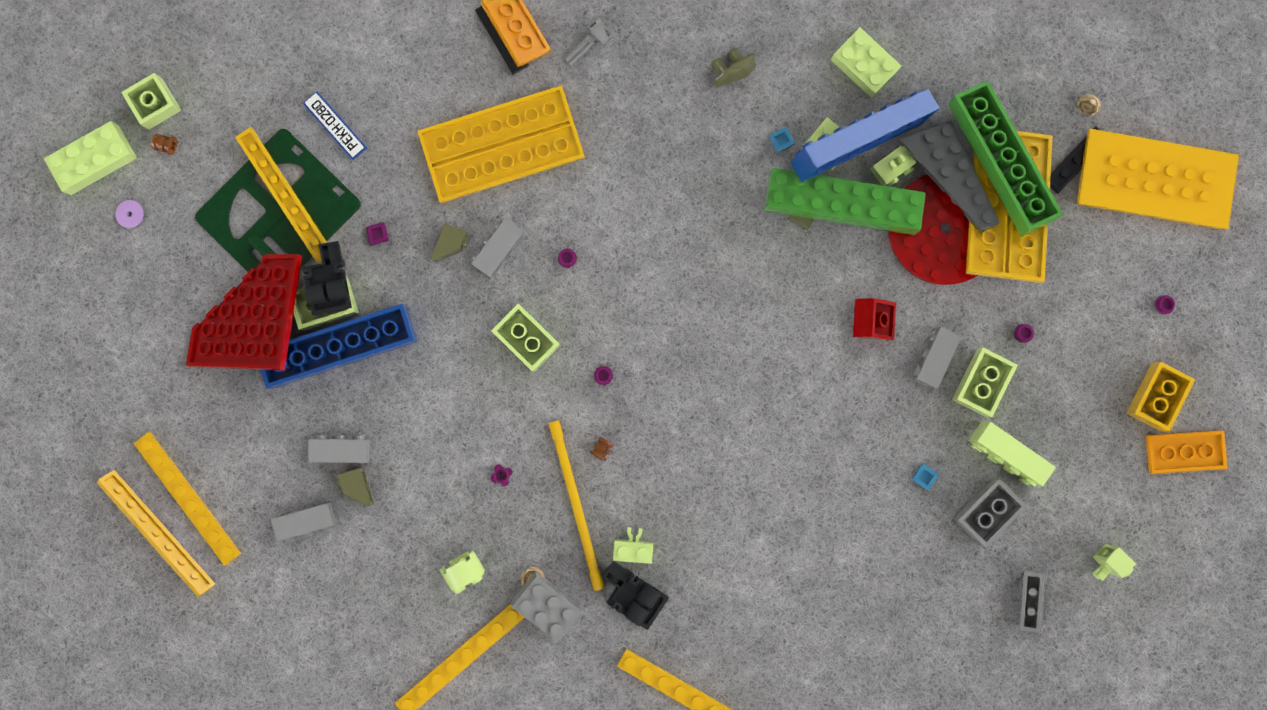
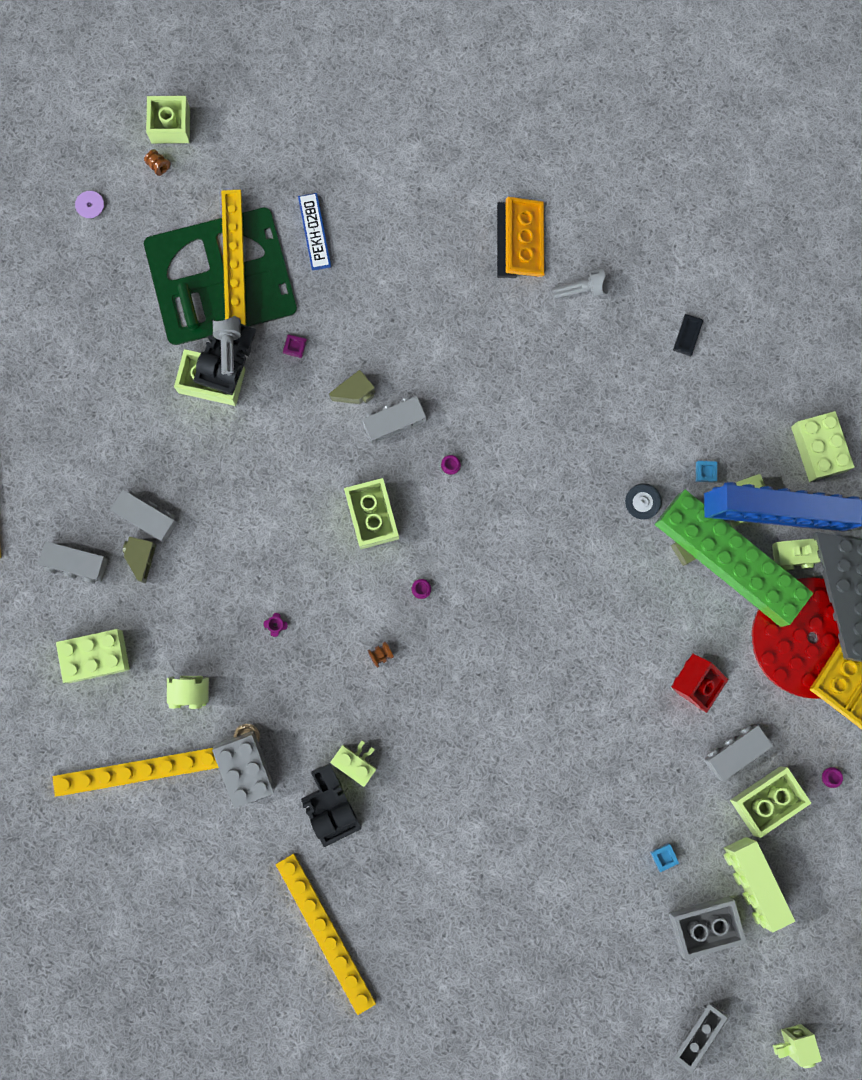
camera: 20 degrees right, 5 degrees down
(90, 158) = (85, 137): yellowish green brick -> none
(252, 321) = (137, 357): red plate -> none
(316, 258) = (227, 332): none -> light grey piece
(344, 345) = (197, 422): blue brick -> none
(367, 588) = (92, 656): none -> yellowish green brick
(501, 144) = (451, 331): yellow plate -> none
(595, 574) = (306, 765): yellow piece -> none
(701, 31) = (688, 335): none -> black tile
(739, 69) = (701, 387): olive connector -> none
(744, 196) = (643, 501): none -> black wheel

